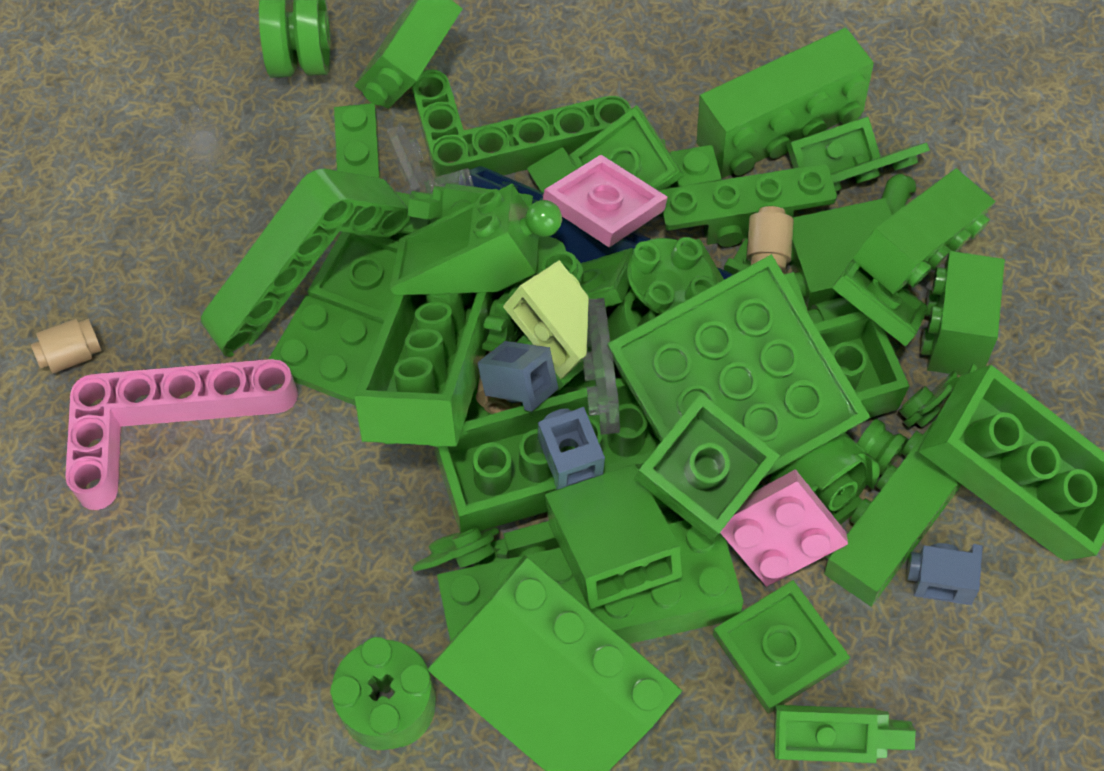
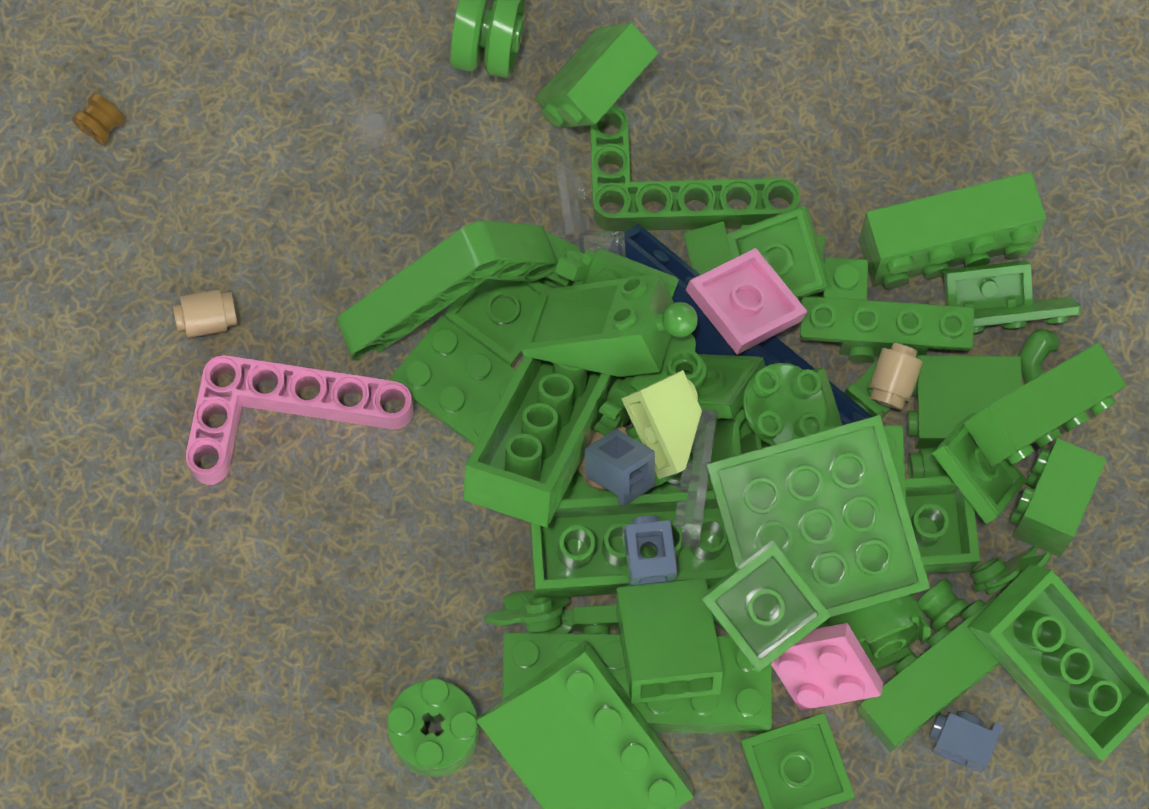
camera: 10 degrees right, 10 degrees up
(357, 139) = (522, 171): bright green plate -> none

